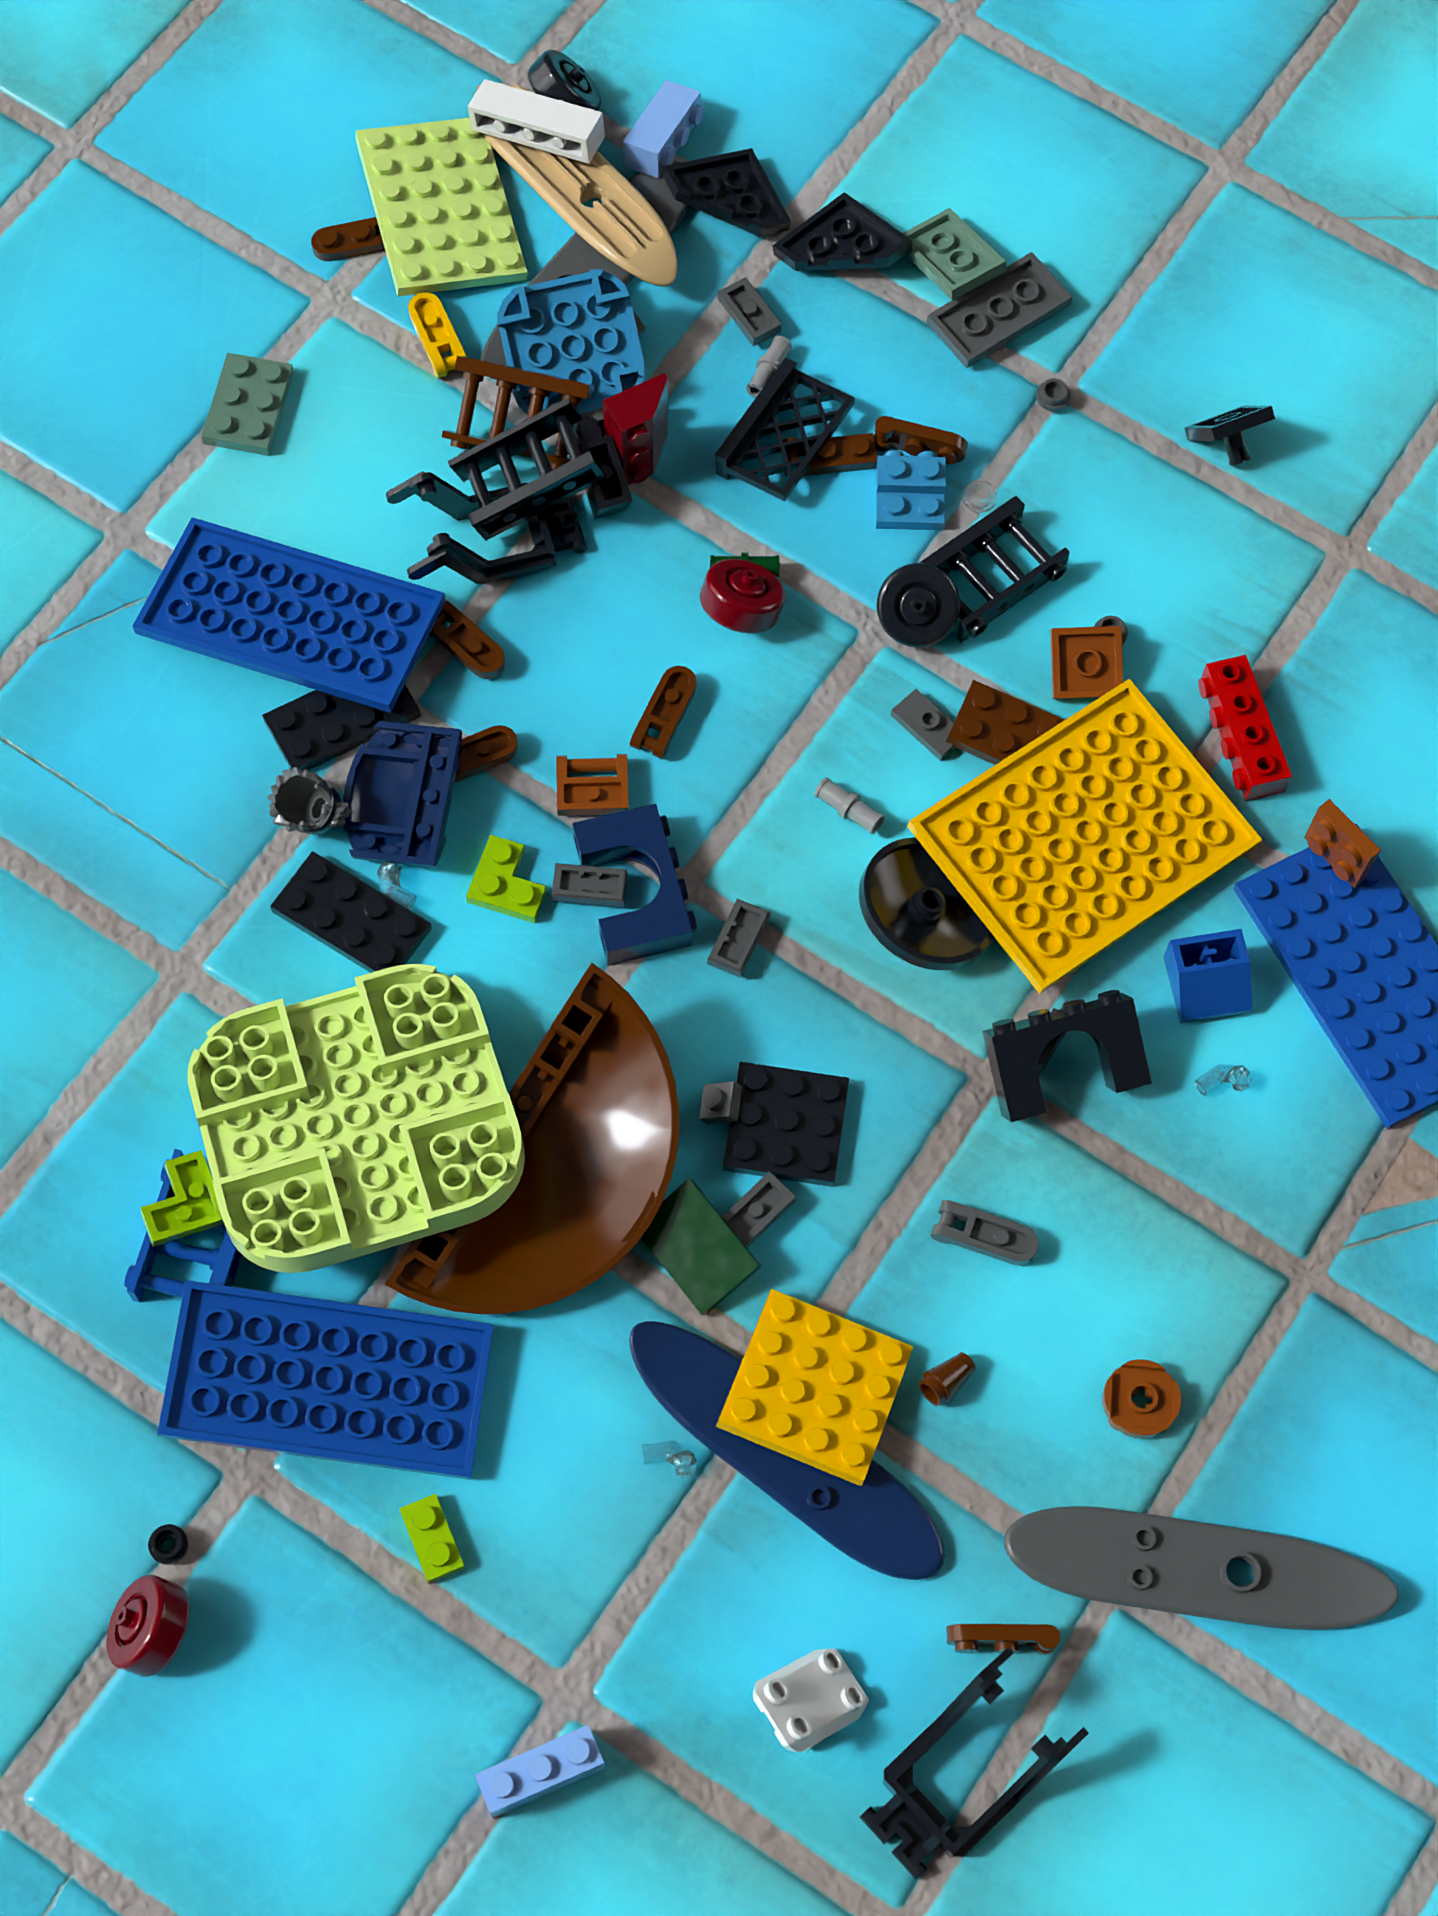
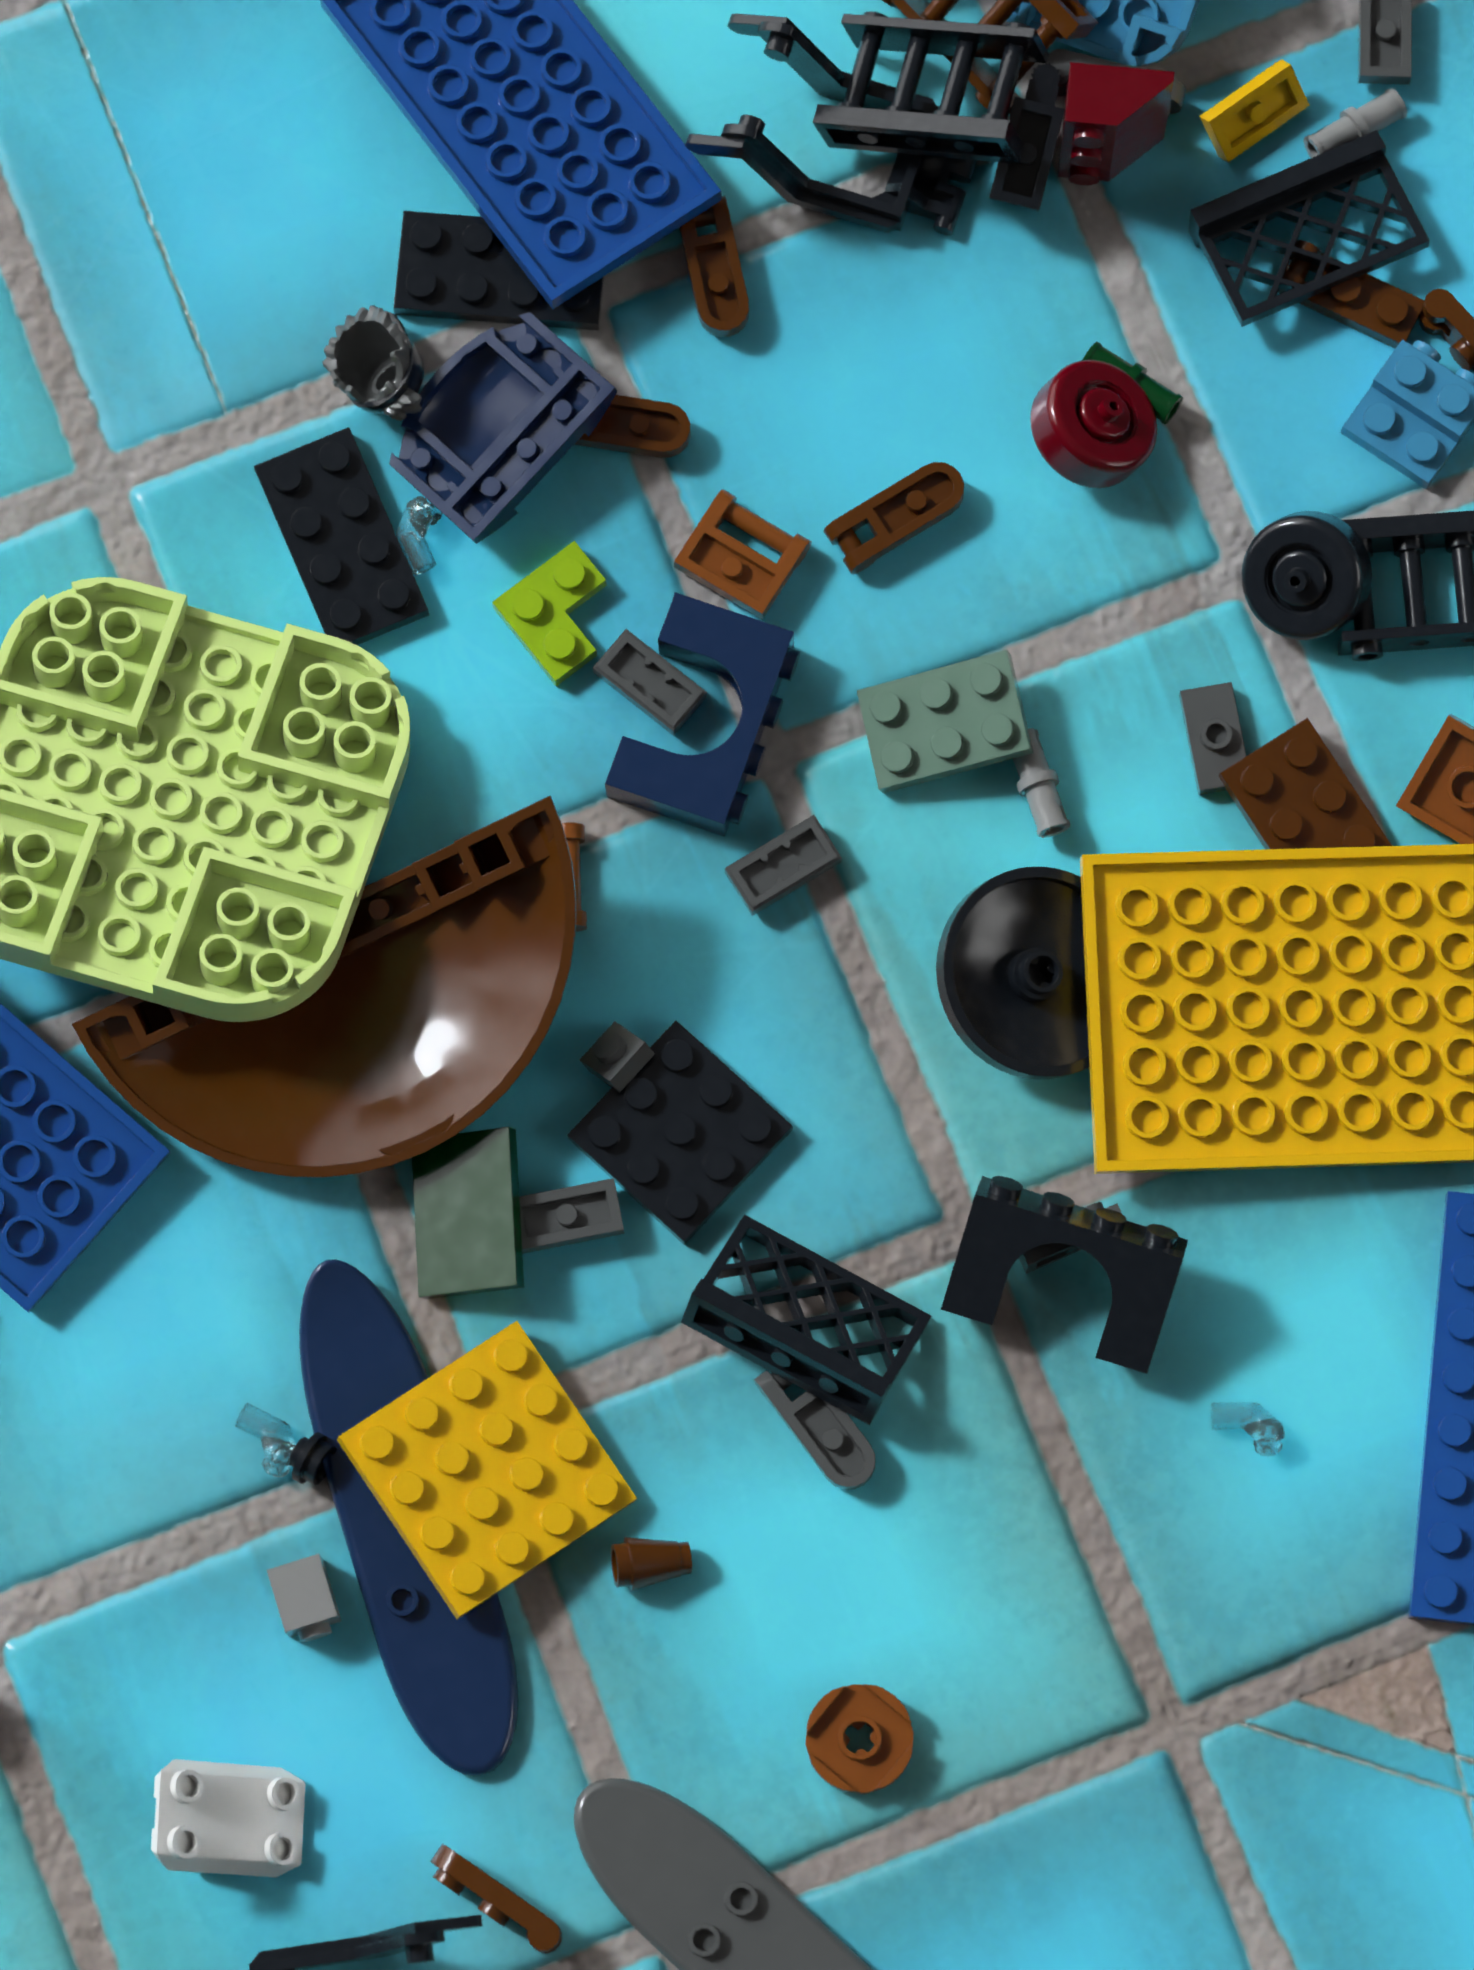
camera: 40 degrees right, 10 degrees up
(704, 1450) = (308, 1458): none -> black plate
(709, 389) = (1254, 110): none -> yellow plate
(760, 1536) = (304, 1598): none -> light grey brick
(774, 803) = (945, 721): none -> sand green plate
(939, 1198) = (788, 1346): none -> black fence
(1209, 975) = (1321, 1288): blue slope -> none

